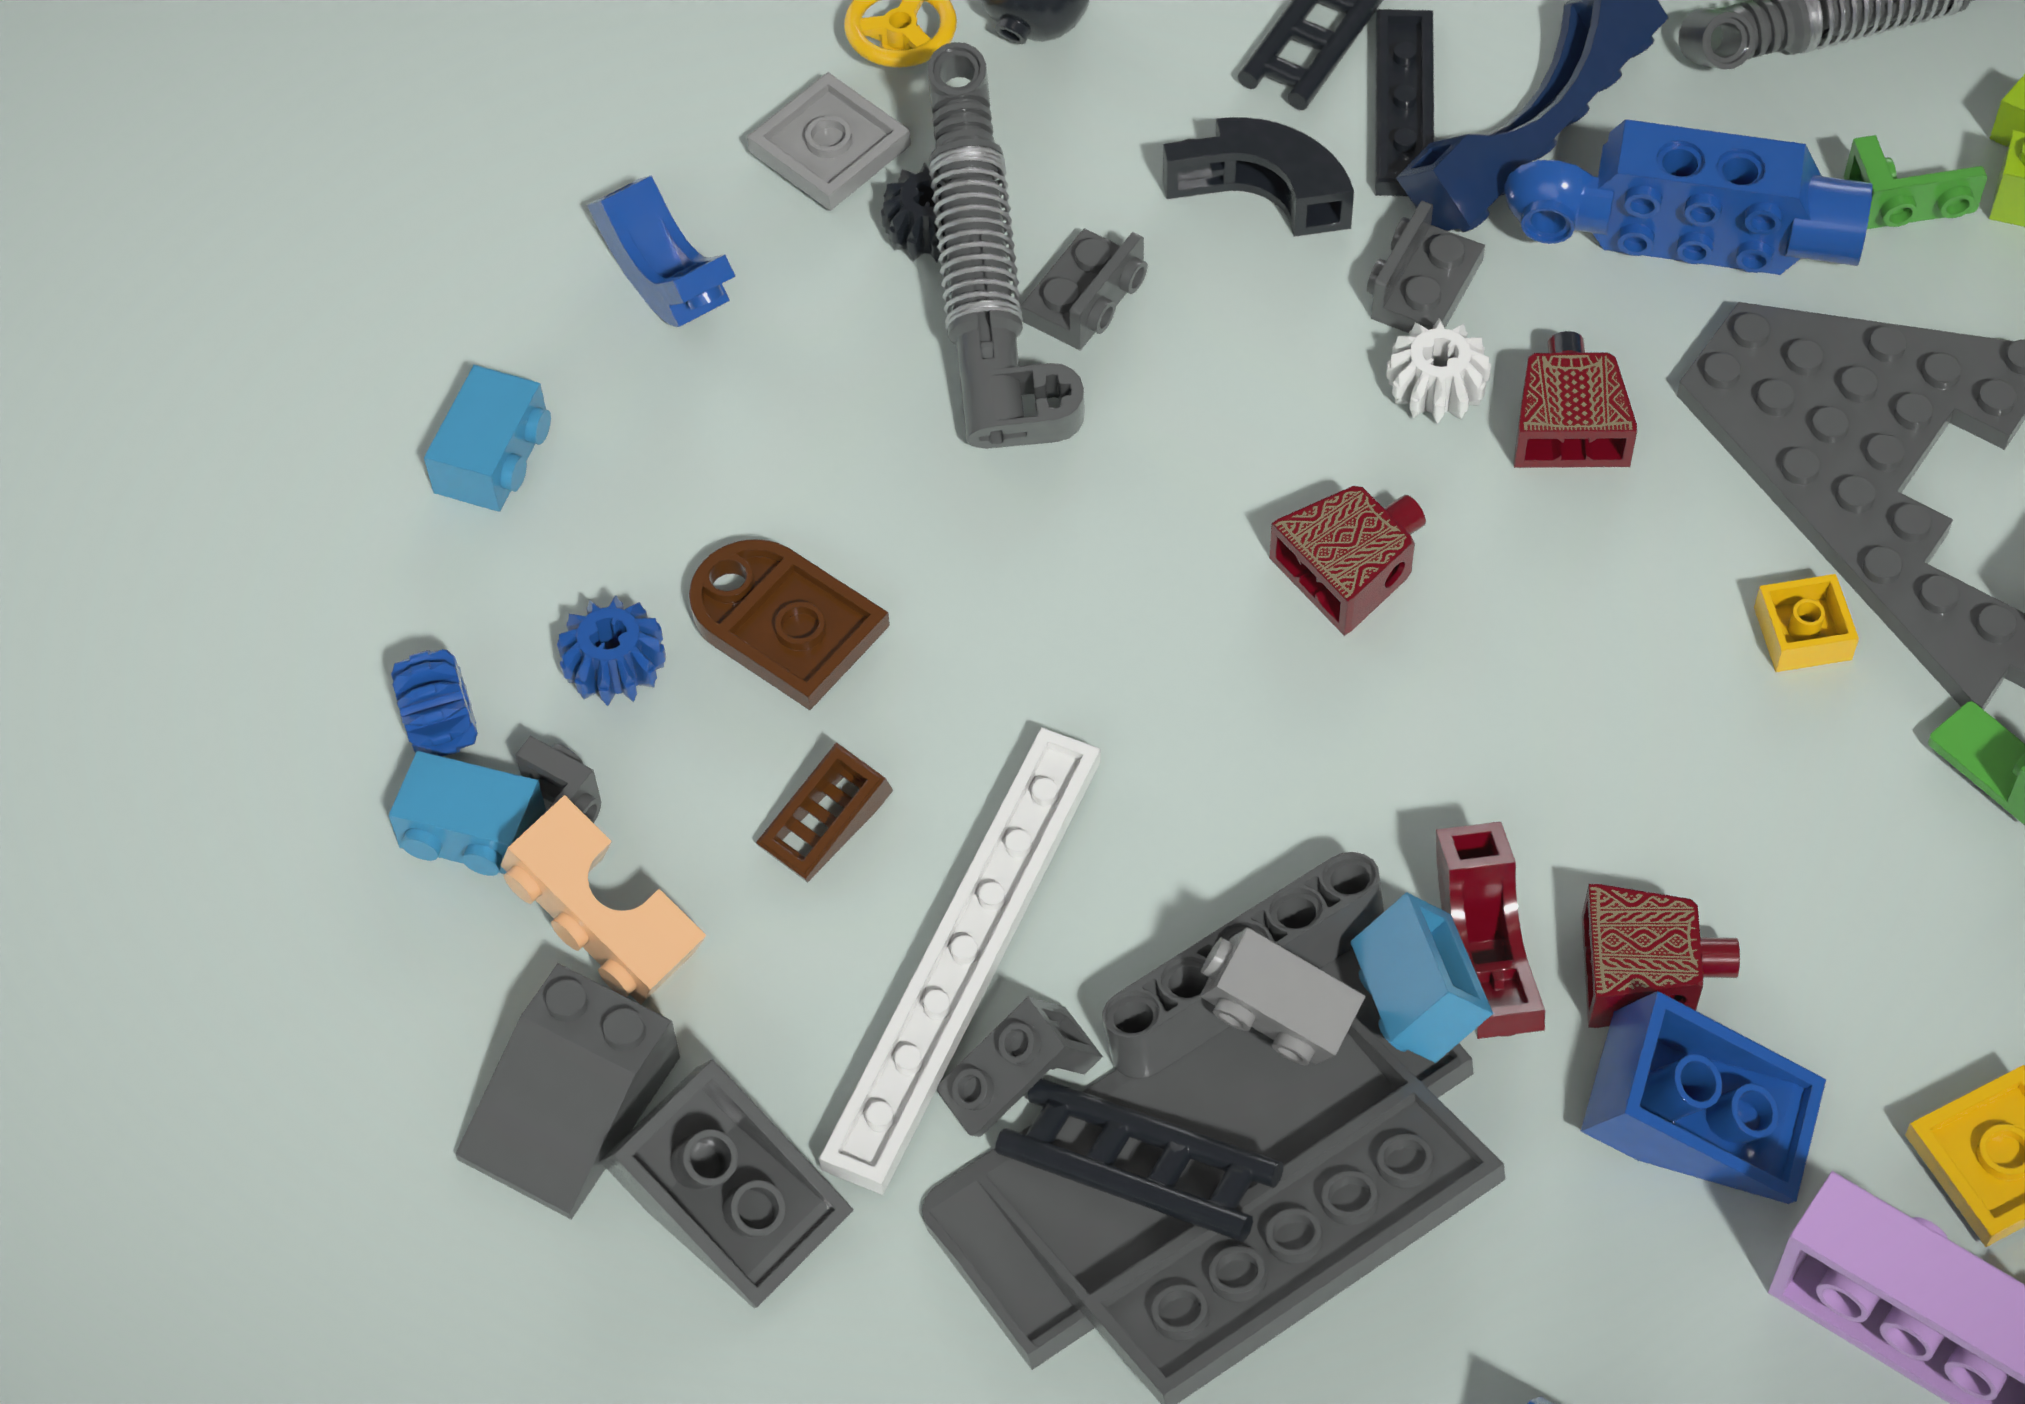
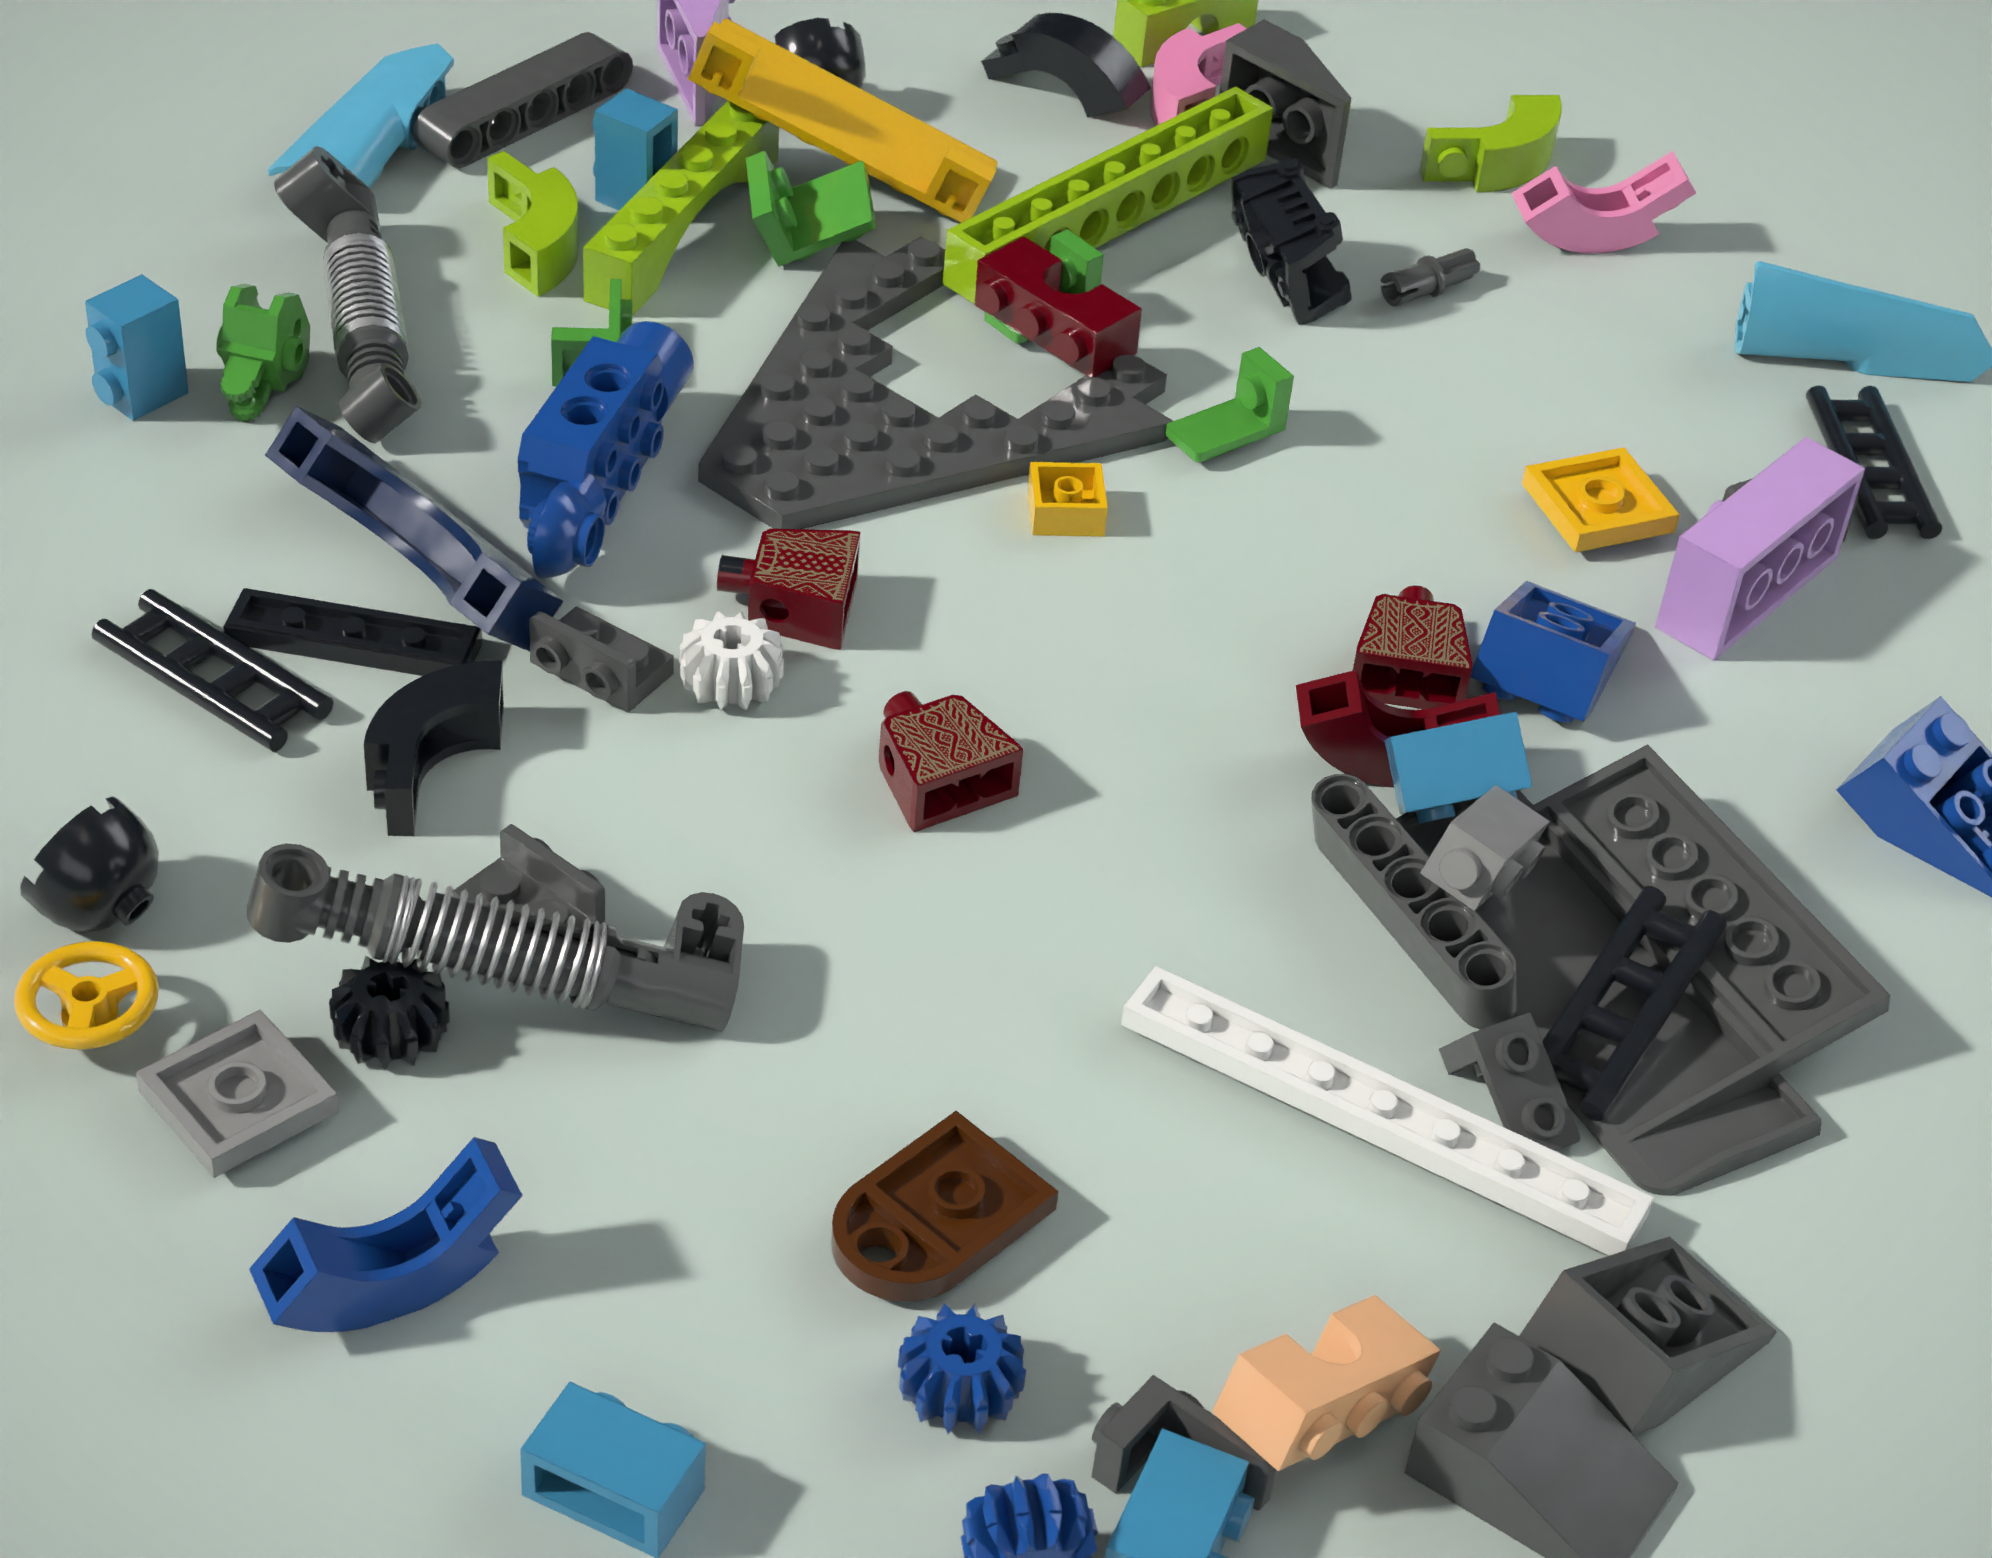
camera: 90 degrees left, 15 degrees down
(822, 782) = (1193, 1176): reddish brown slope -> none

